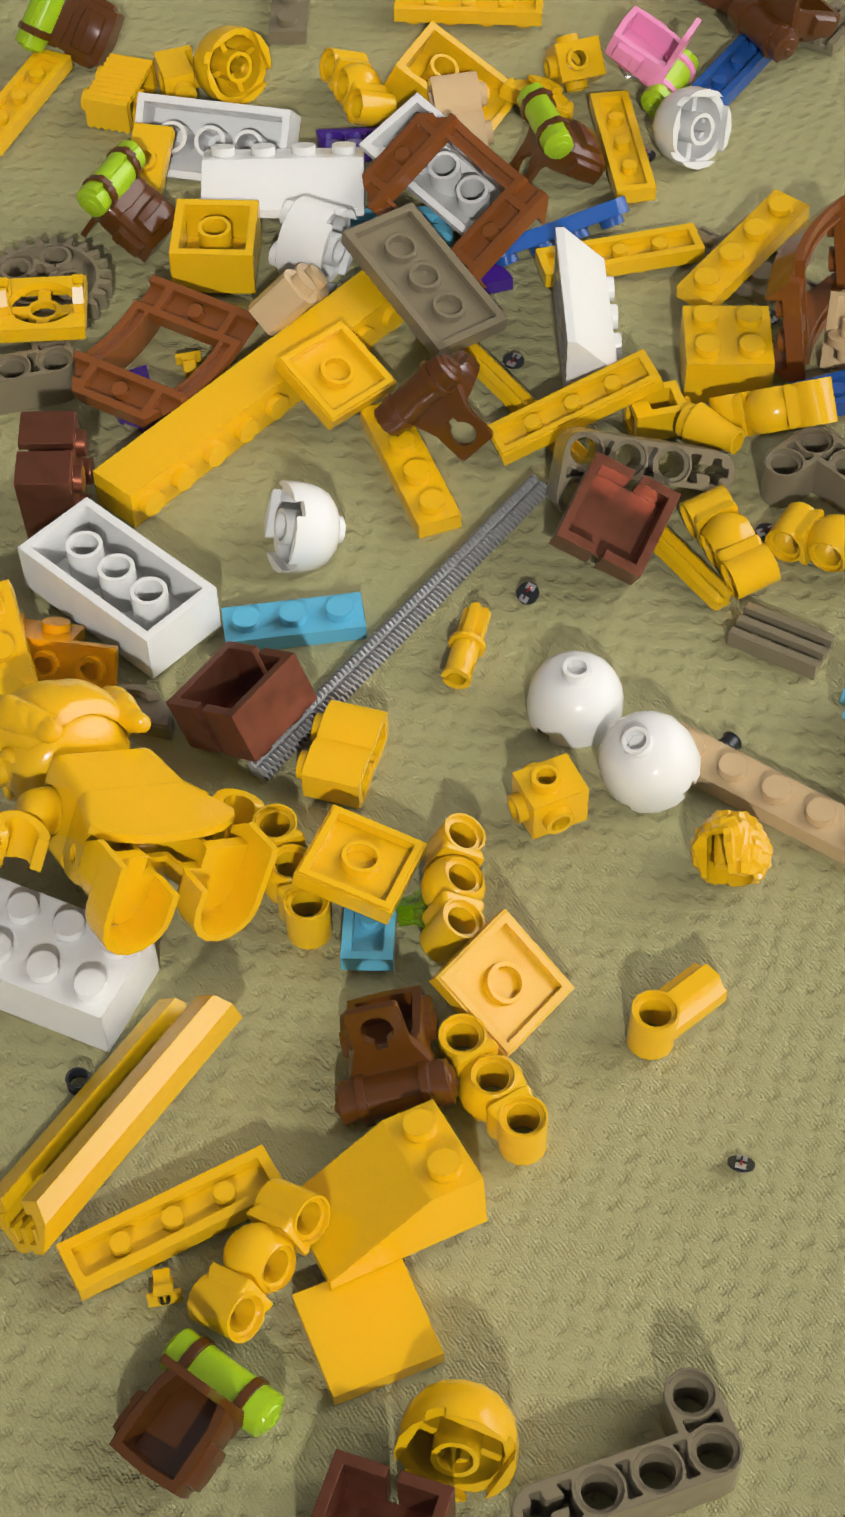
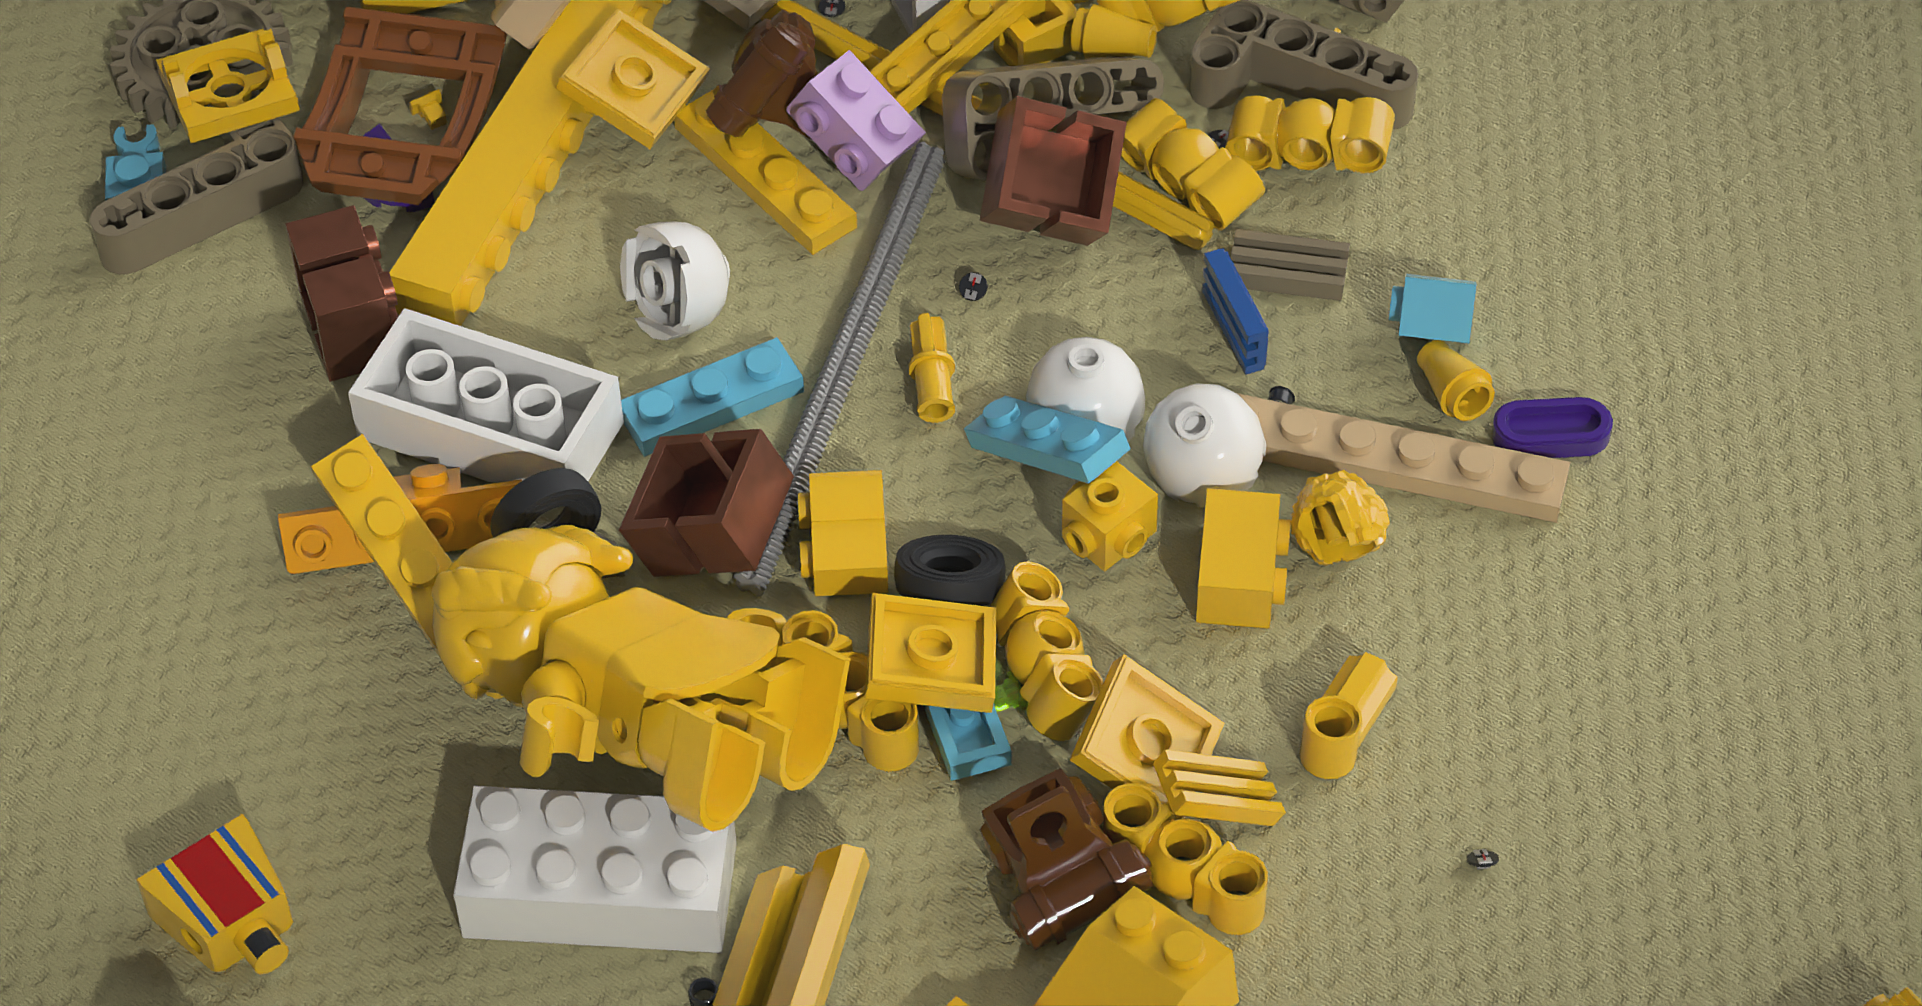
camera: 20 degrees left, 0 degrees up
(121, 657) = (543, 493): none -> black tyre
(389, 790) = (949, 569): none -> black tyre
(485, 444) = (854, 120): none -> lavender bracket
(525, 722) = (1047, 438): none -> medium azure plate
(542, 1031) = (1216, 778): none -> yellow tile
(640, 859) = (1239, 558): none -> yellow brick
(720, 664) = (1235, 311): none -> blue tile

